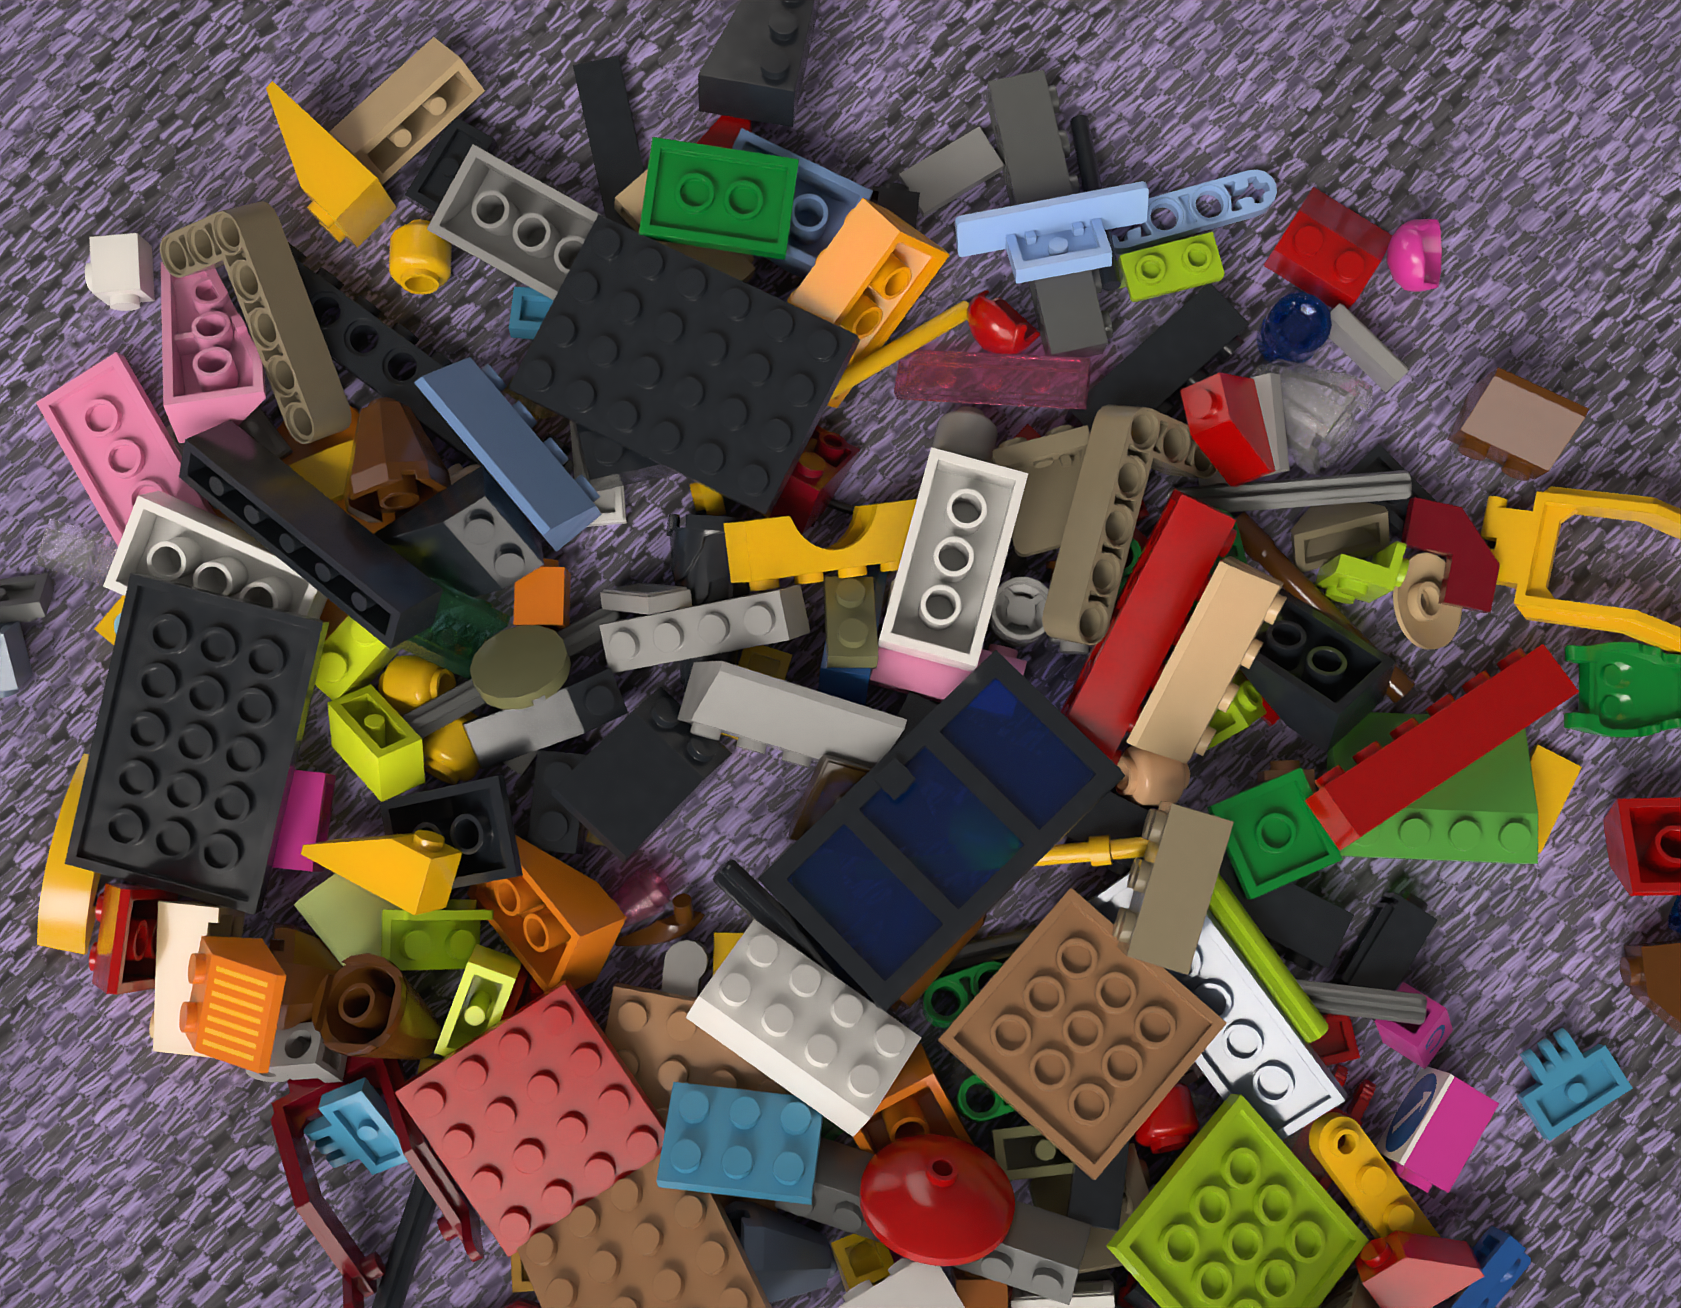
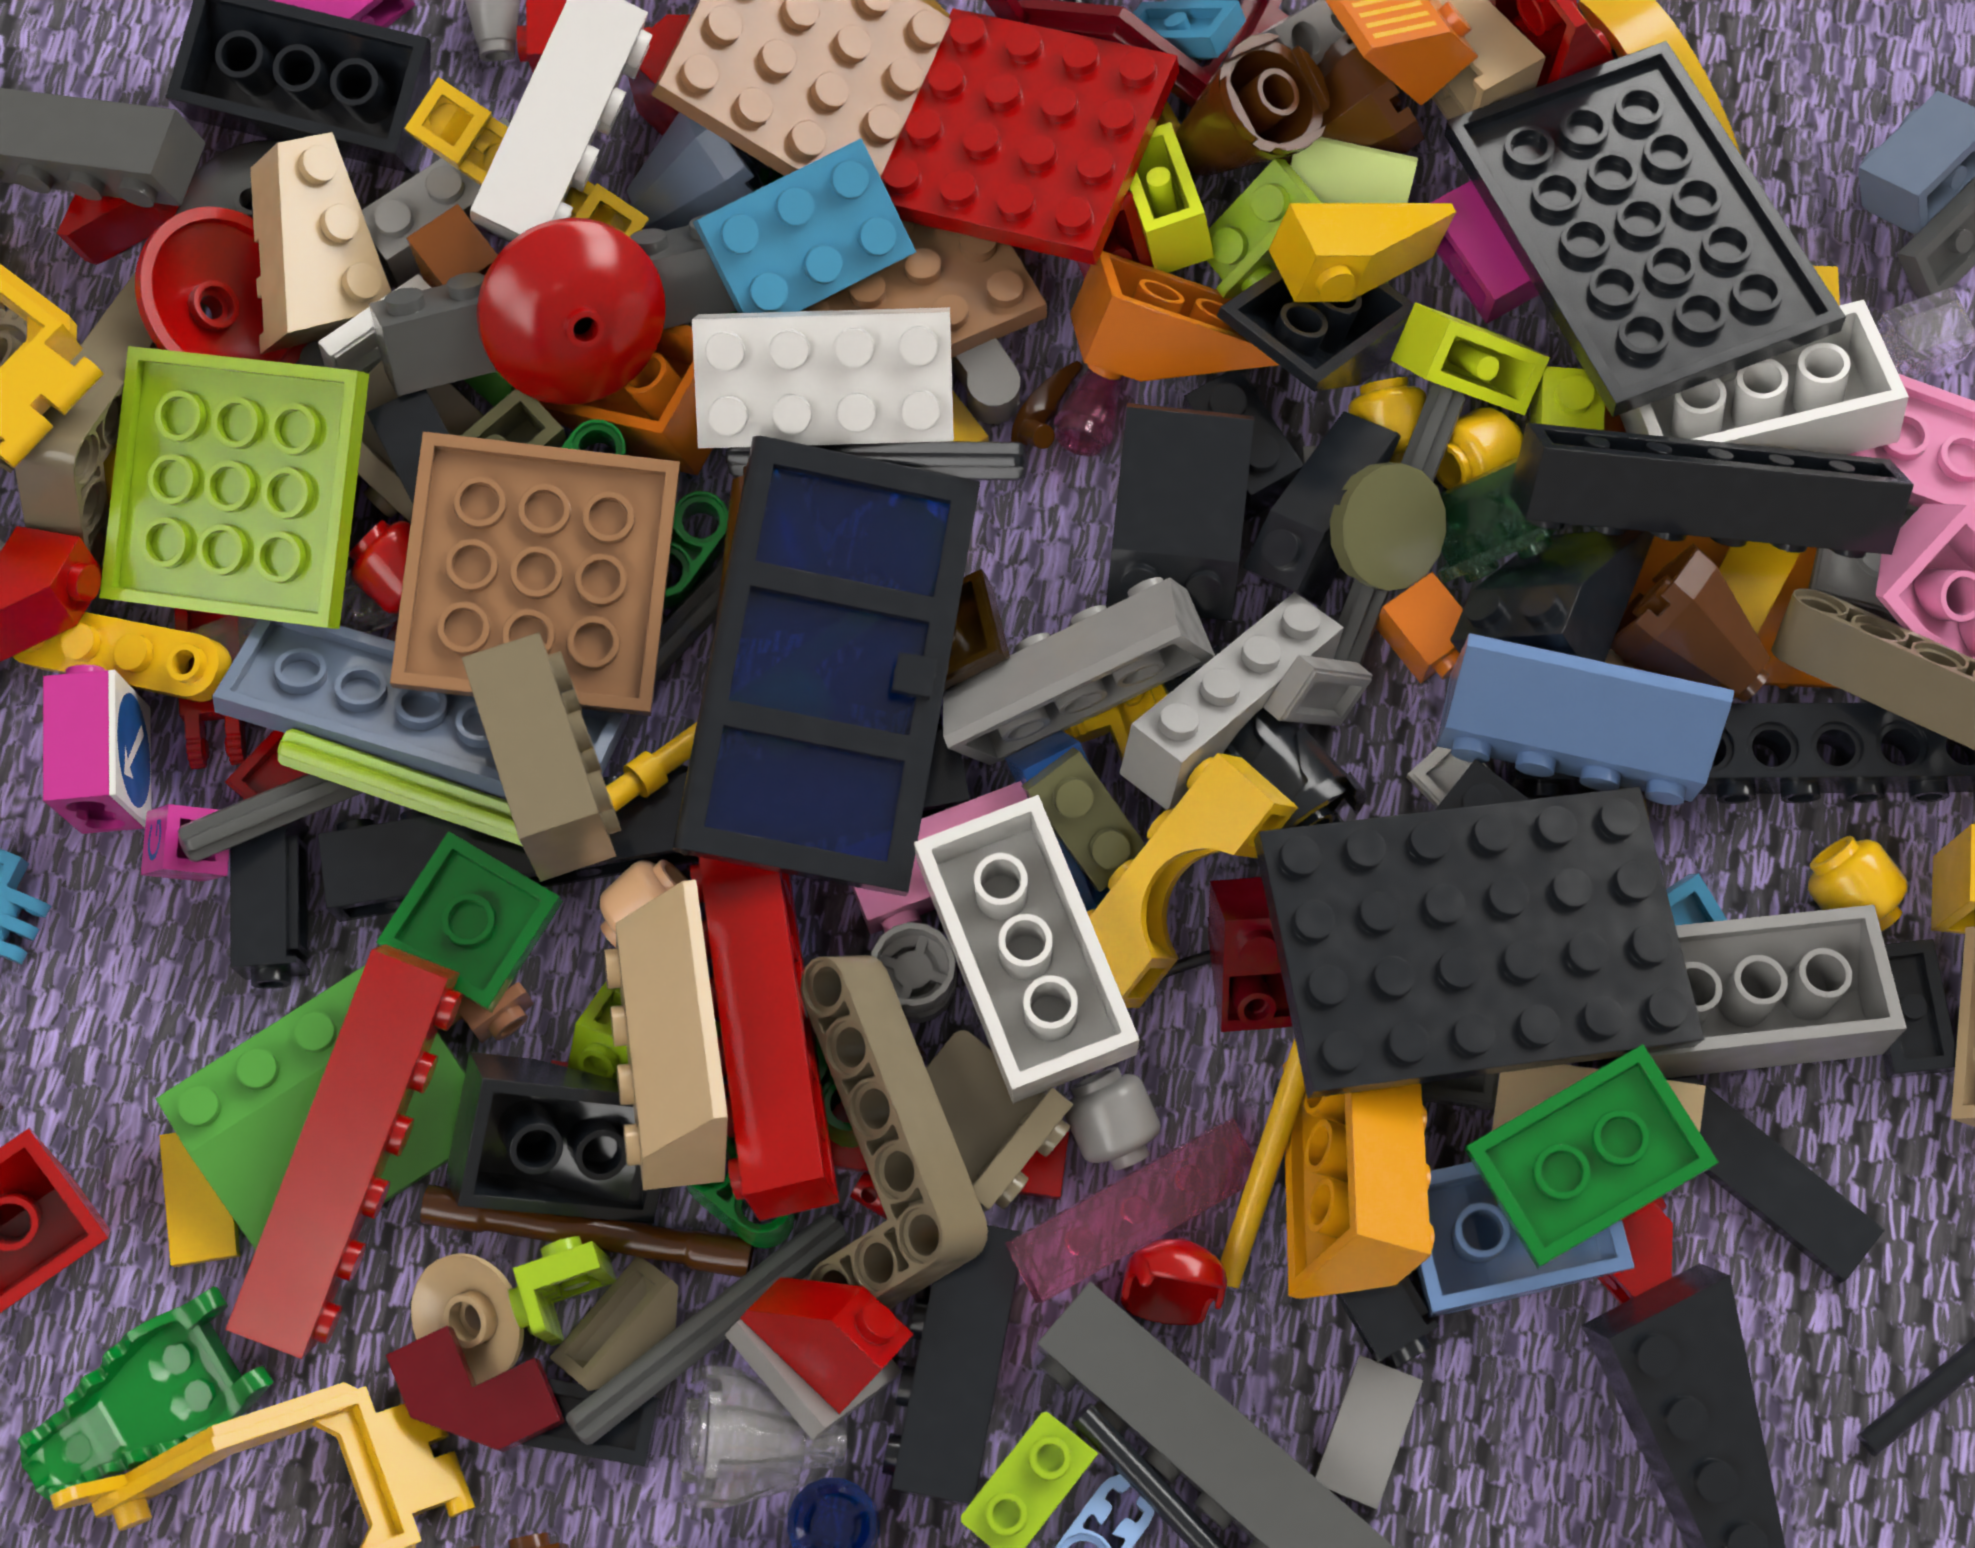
camera: 145 degrees right, 10 degrees down
(1054, 233) = (1186, 1411): light blue bracket -> none

